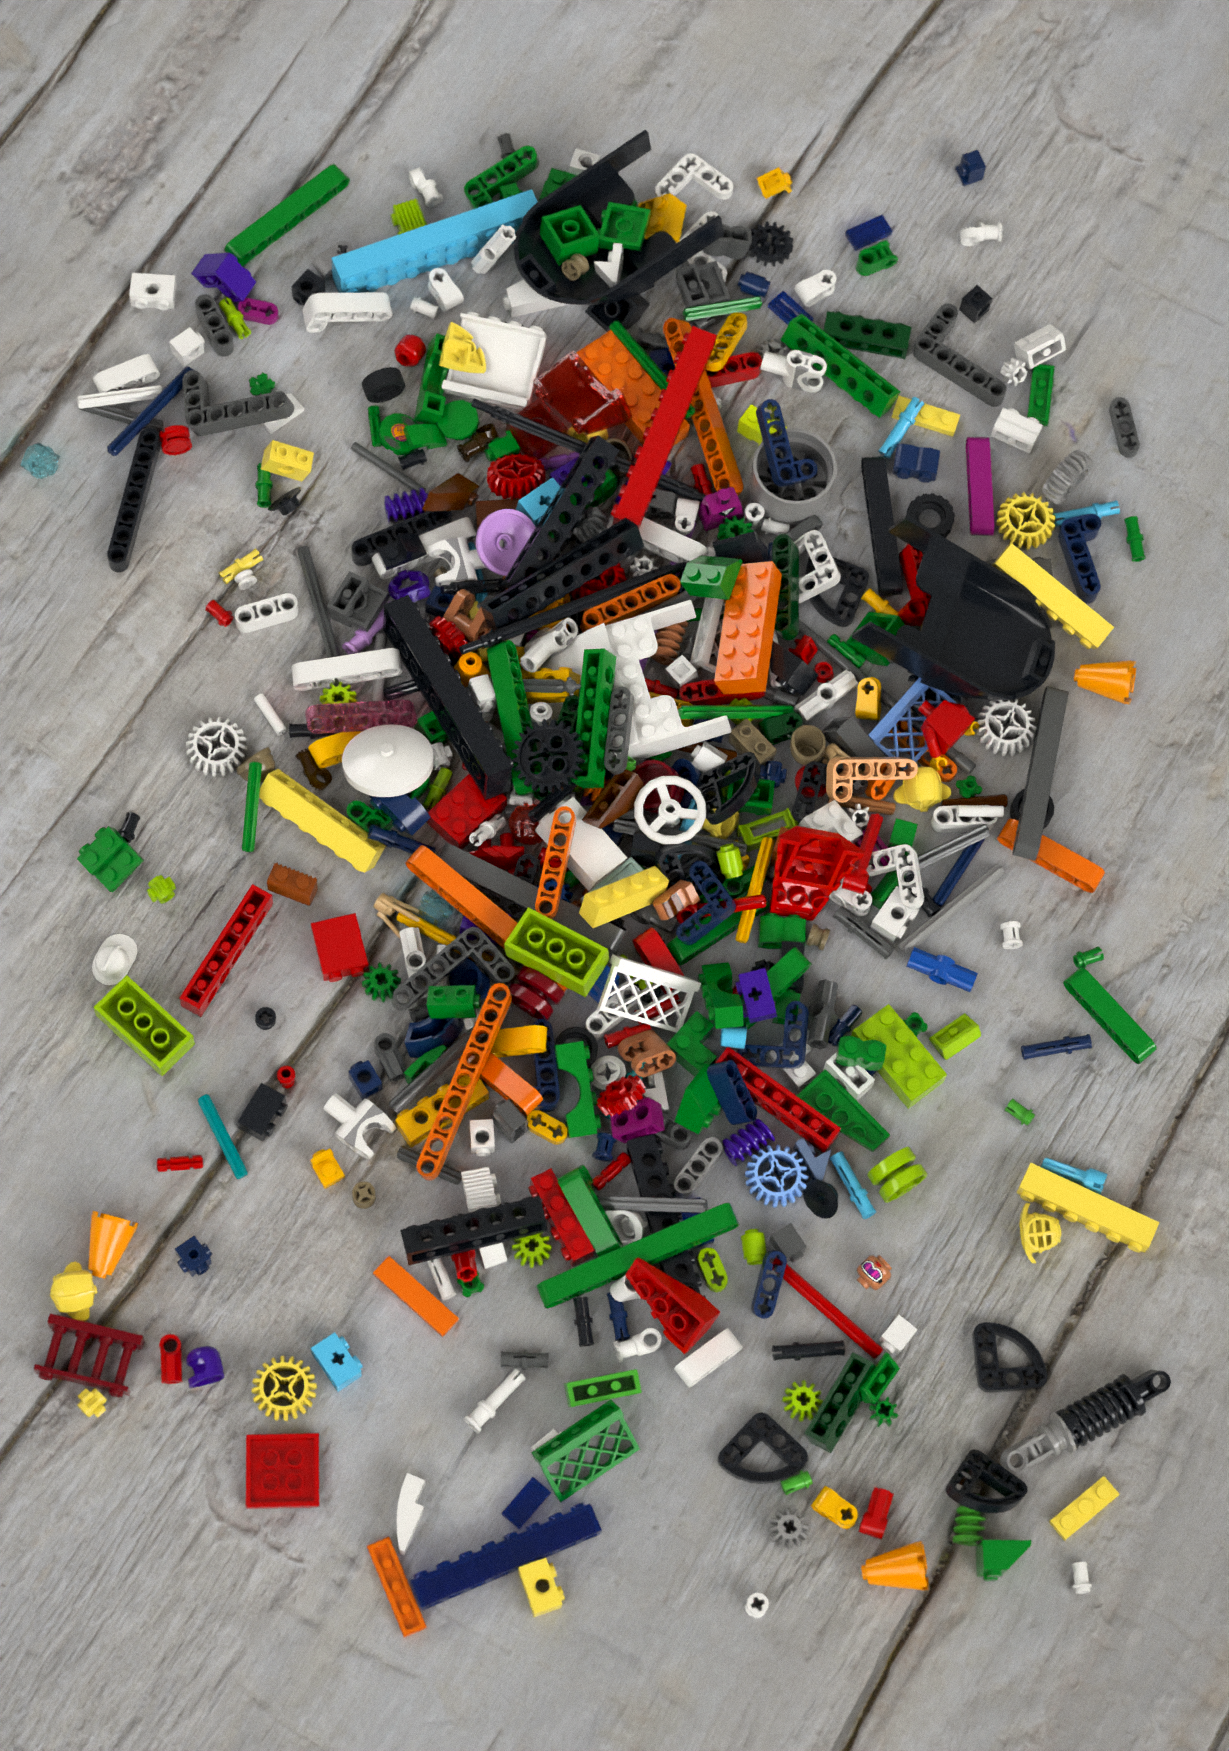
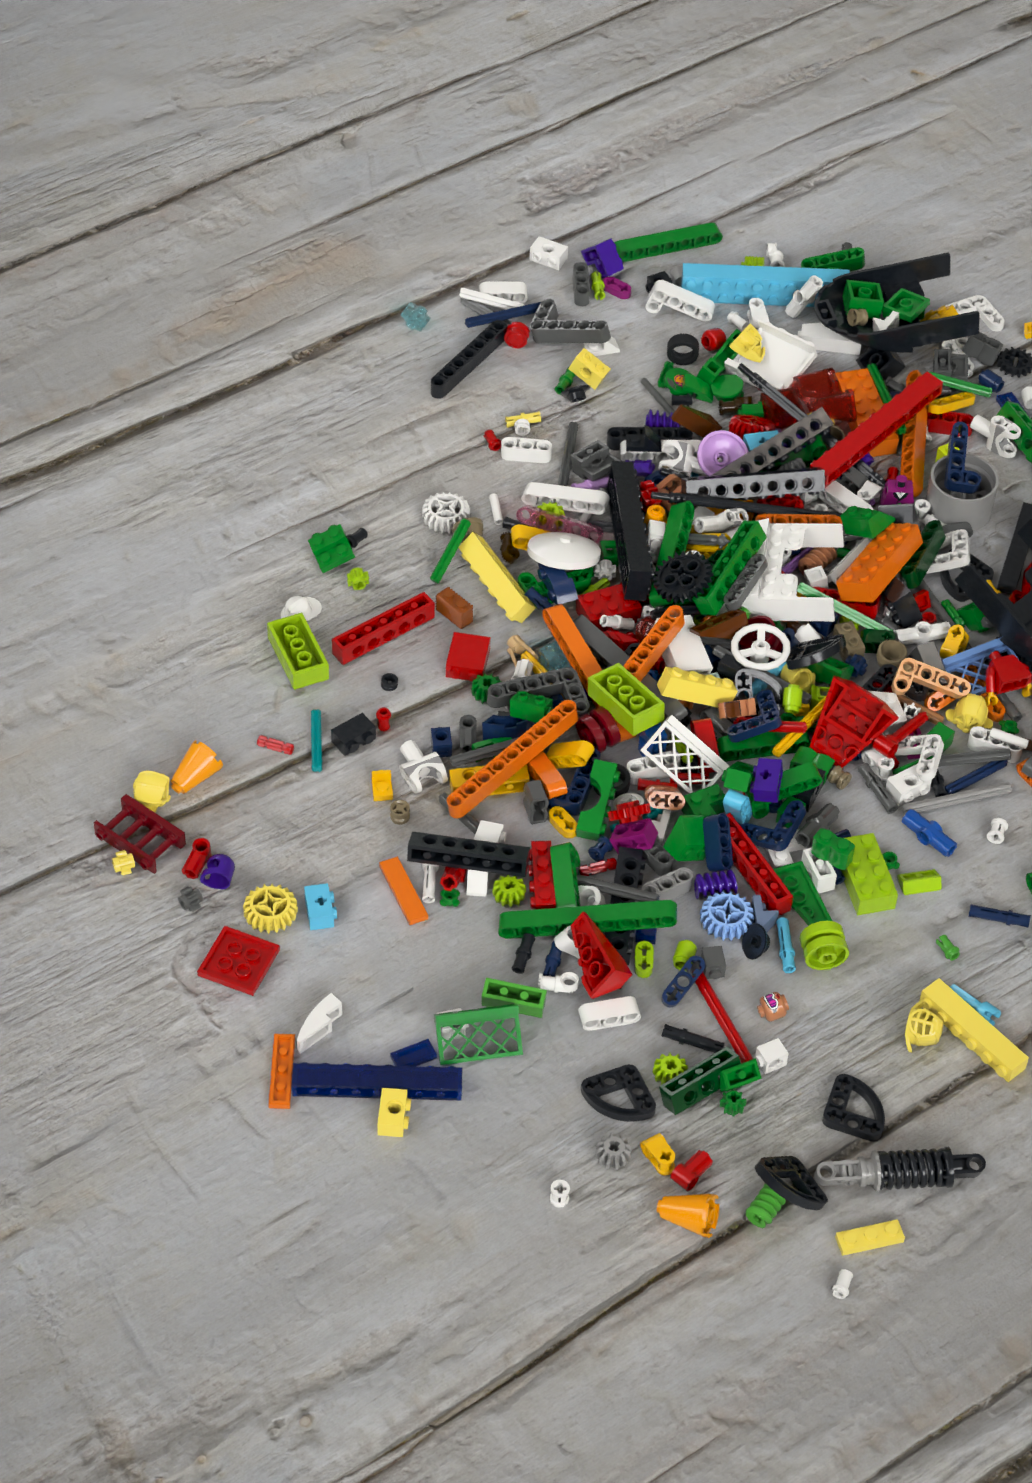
camera: 30 degrees right, 20 degrees down
(187, 346) = (555, 289): white brick -> none
(190, 1250) = (251, 800): dark blue brick -> none
(190, 1416) = (190, 899): none -> dark grey gear
(482, 1127) = (509, 808): white brick -> none
(487, 1408) = (417, 980): white pin -> none
(524, 1359) = (464, 960): dark grey pin -> none
(796, 1482) = (637, 1124): bright green pin -> none
(997, 1556) = (780, 1235): green slope -> none

